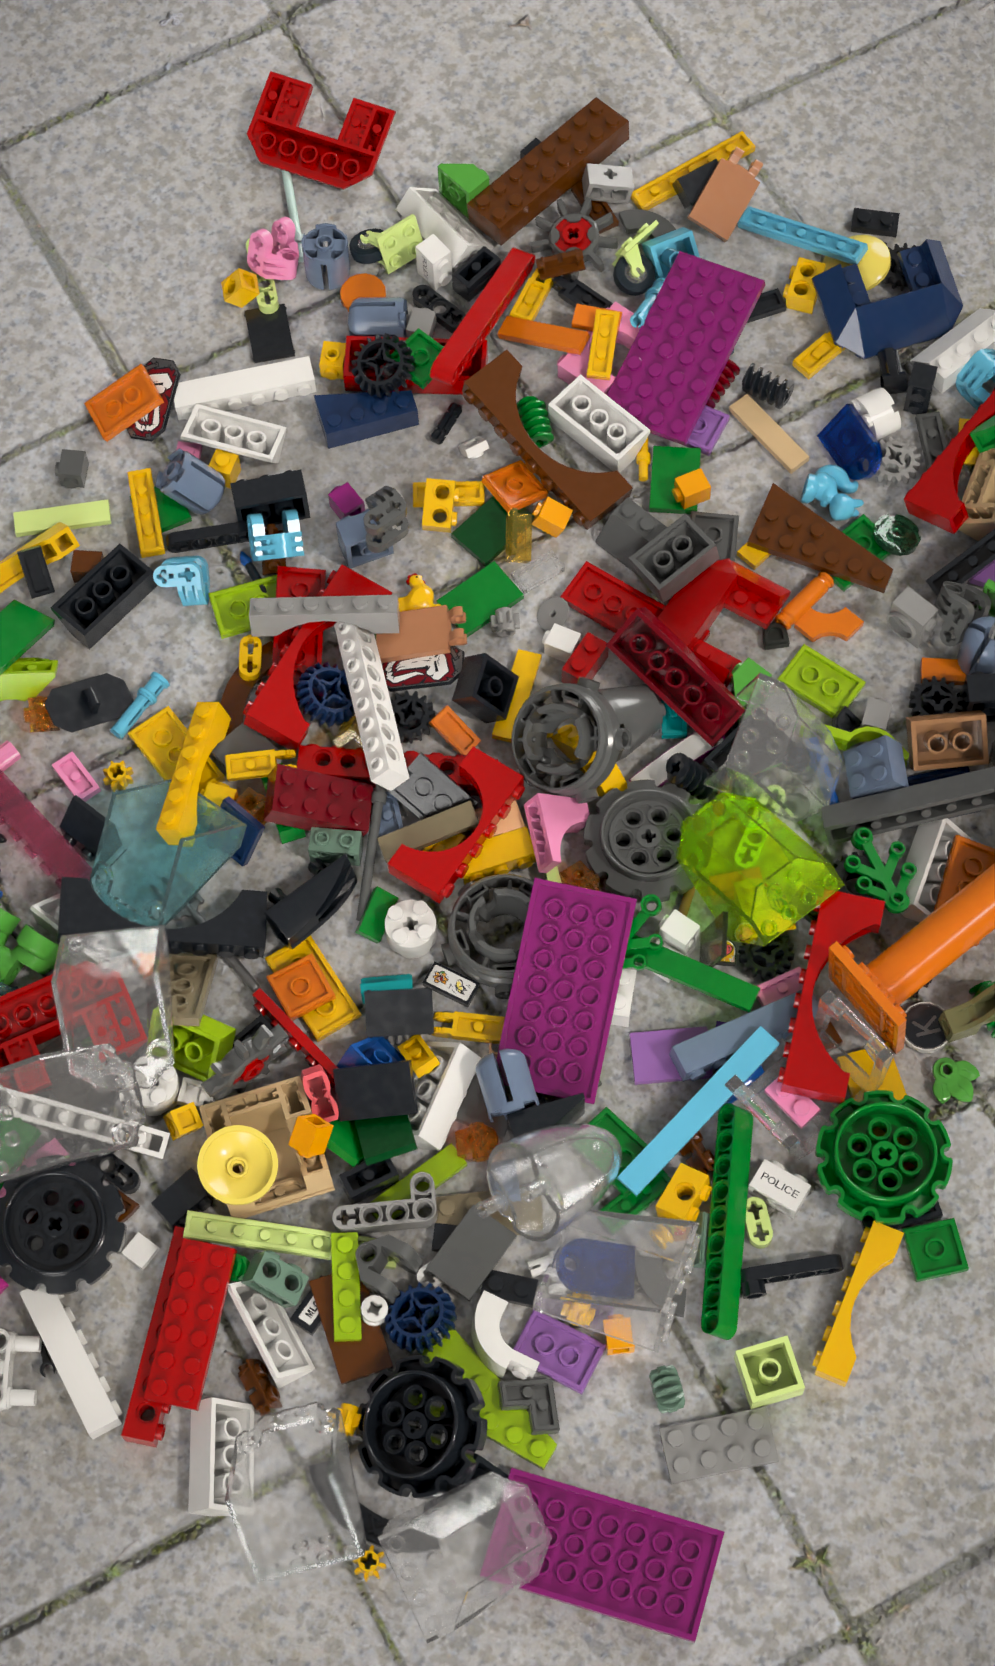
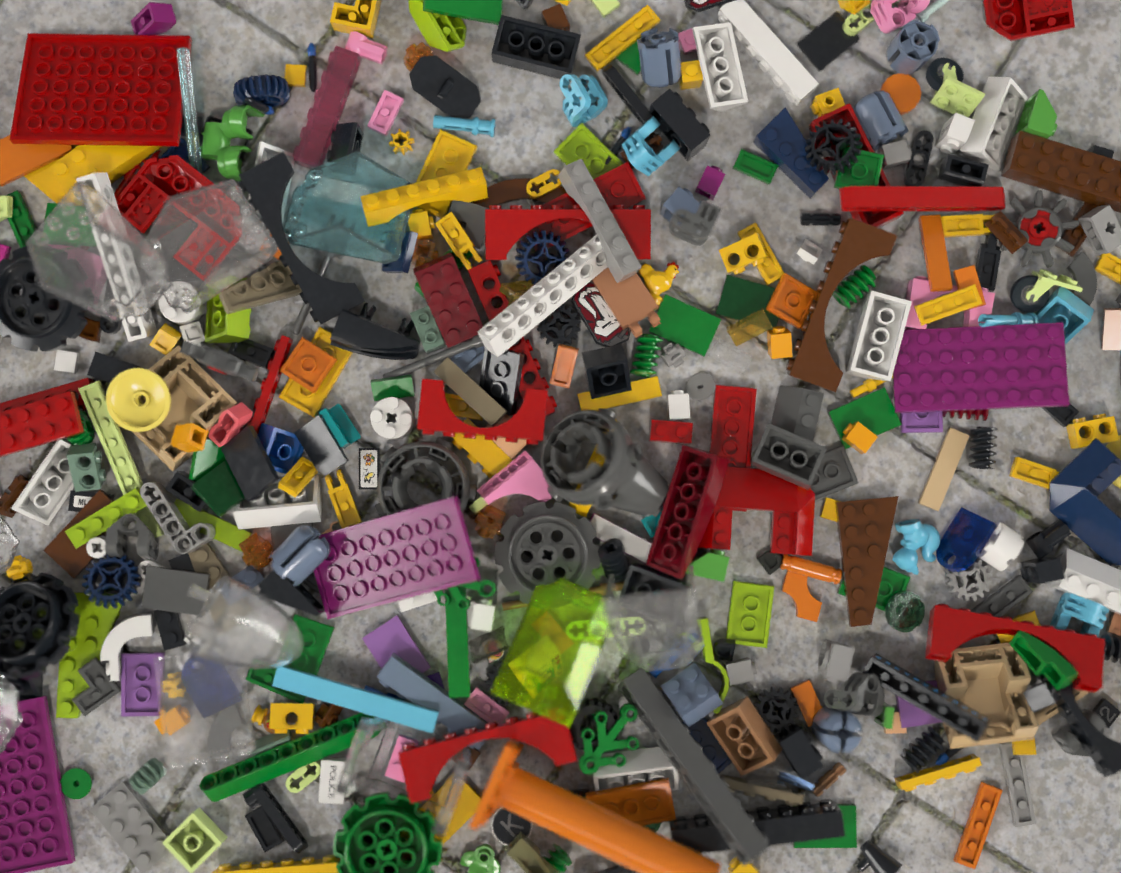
camera: 55 degrees right, 20 degrees up
(355, 457) = (755, 166): none -> green tile
(483, 643) = (646, 355): none -> green piece
(633, 1484) = (76, 783): none -> green piece
(795, 1297) = (264, 829): none -> black tile

